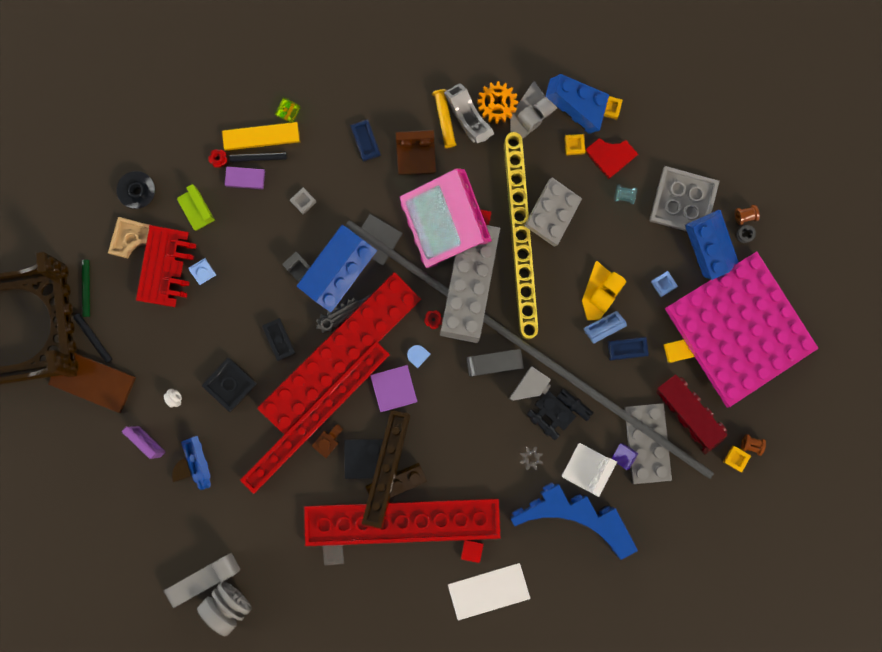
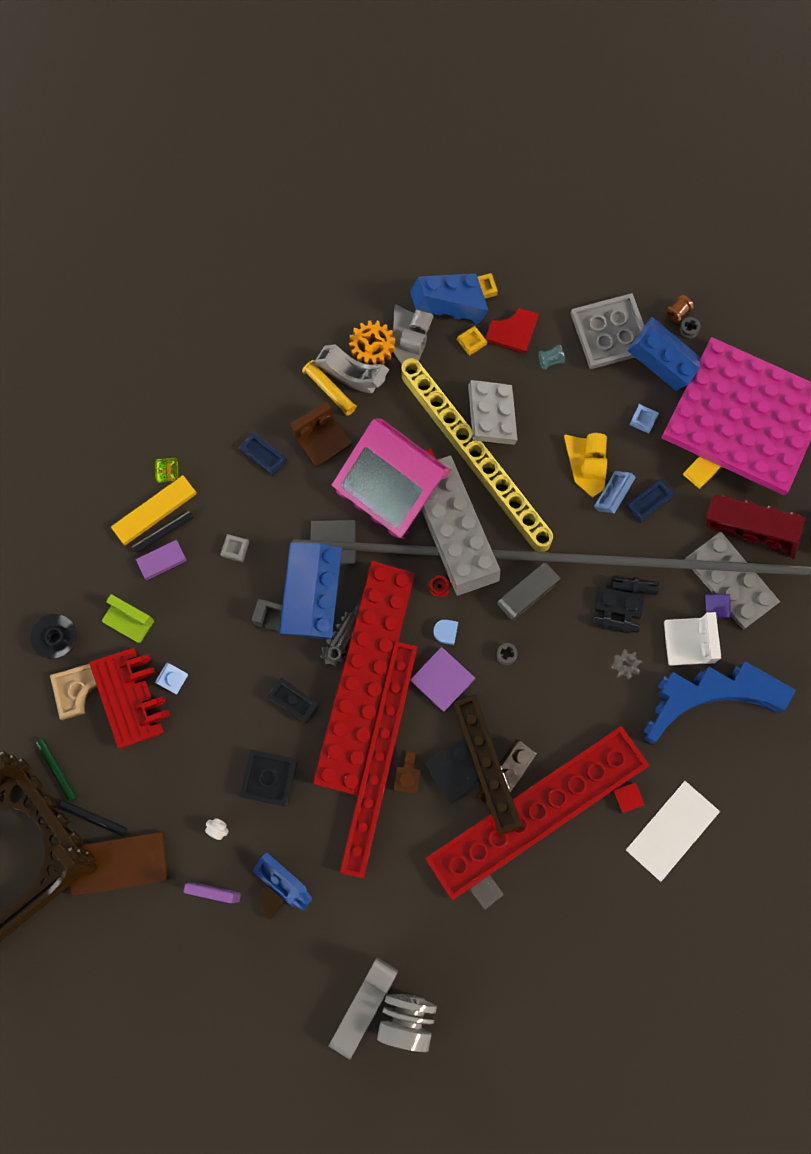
camera: 20 degrees left, 10 degrees down
(222, 158) = (122, 562): red plate -> none
(450, 403) = (504, 647): none -> dark grey bush
(531, 385) = (580, 591): light grey slope -> none

